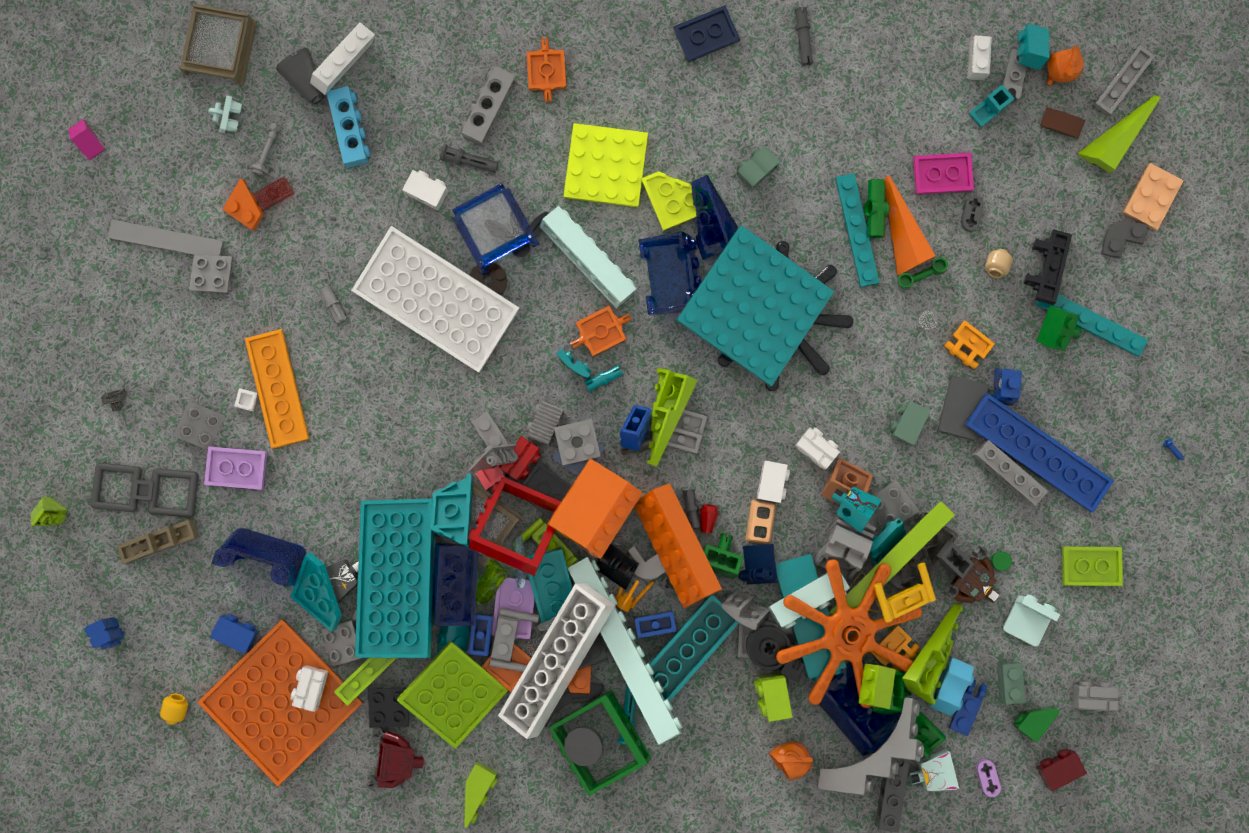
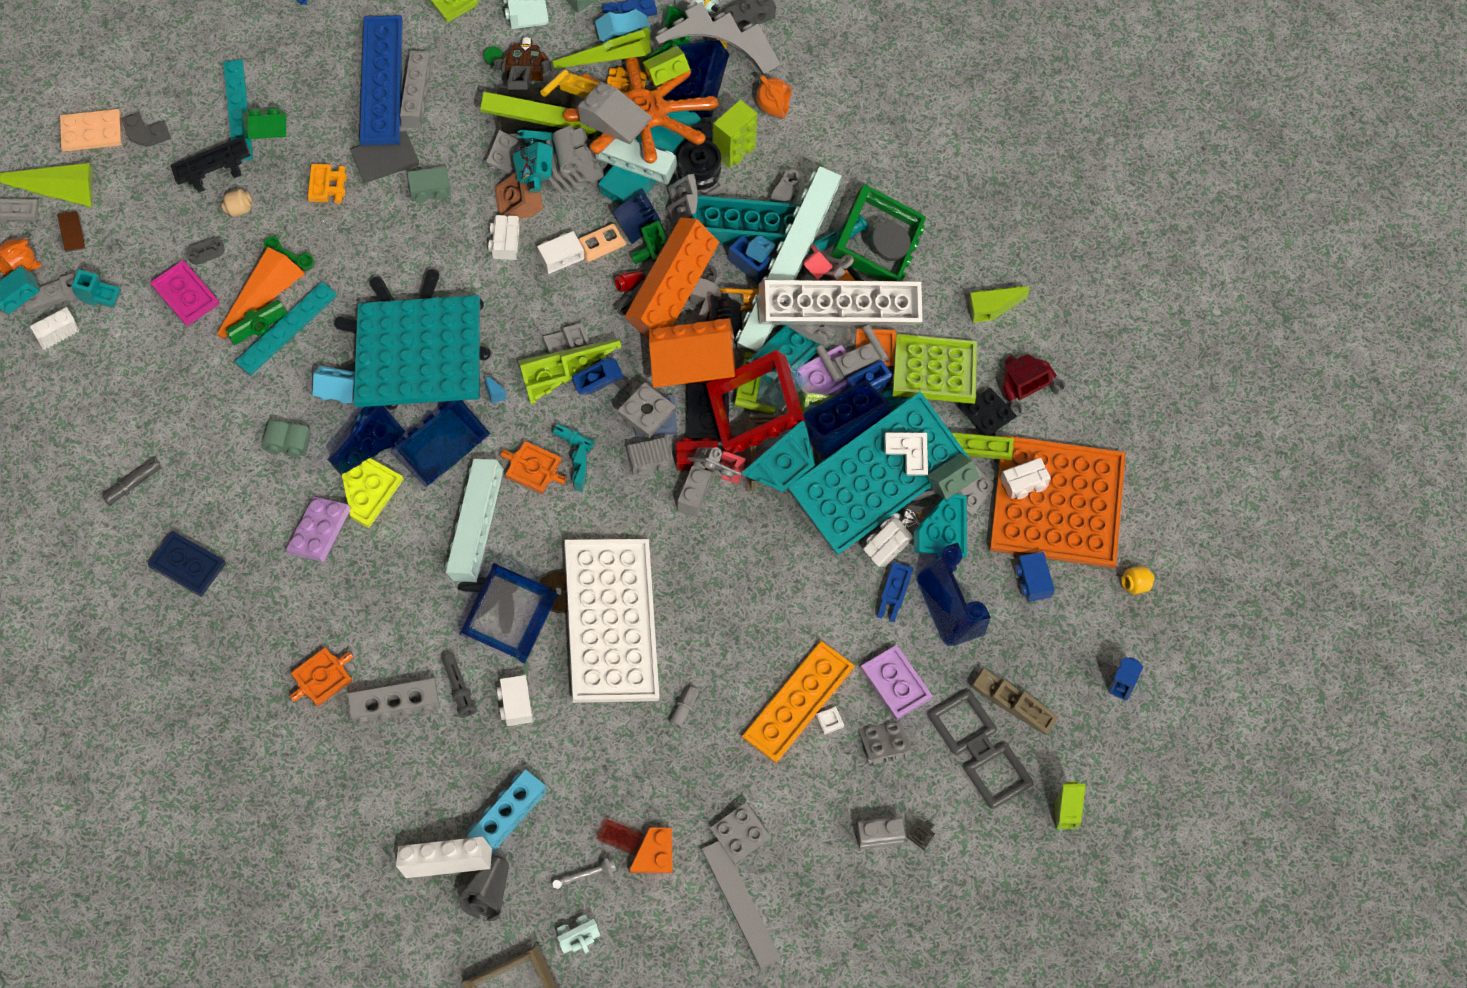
camera: 130 degrees left, 20 degrees down
(136, 369) = (880, 833): none -> light grey brick
(304, 523) = (895, 589): none -> blue hinge
(339, 543) = (888, 542): none -> white brick
(346, 630) = (953, 476): none -> sand green brick
(391, 615) = (913, 447): none -> white plate
(599, 682) = (839, 265): none -> light grey hinge
(605, 165) = (377, 567): neon yellow plate -> none
(607, 673) = (817, 263): none -> coral panel
(652, 635) = (759, 248): none -> dark azure slope
(665, 142) = (318, 529): none -> lavender plate
(686, 345) = (495, 391): none -> dark azure slope
(697, 701) = (787, 187): none -> light grey piece
(778, 229) = (334, 384): none -> medium azure brick
(851, 601) = (613, 113): none -> light grey slope
(1007, 385) = (340, 133): blue torso -> none

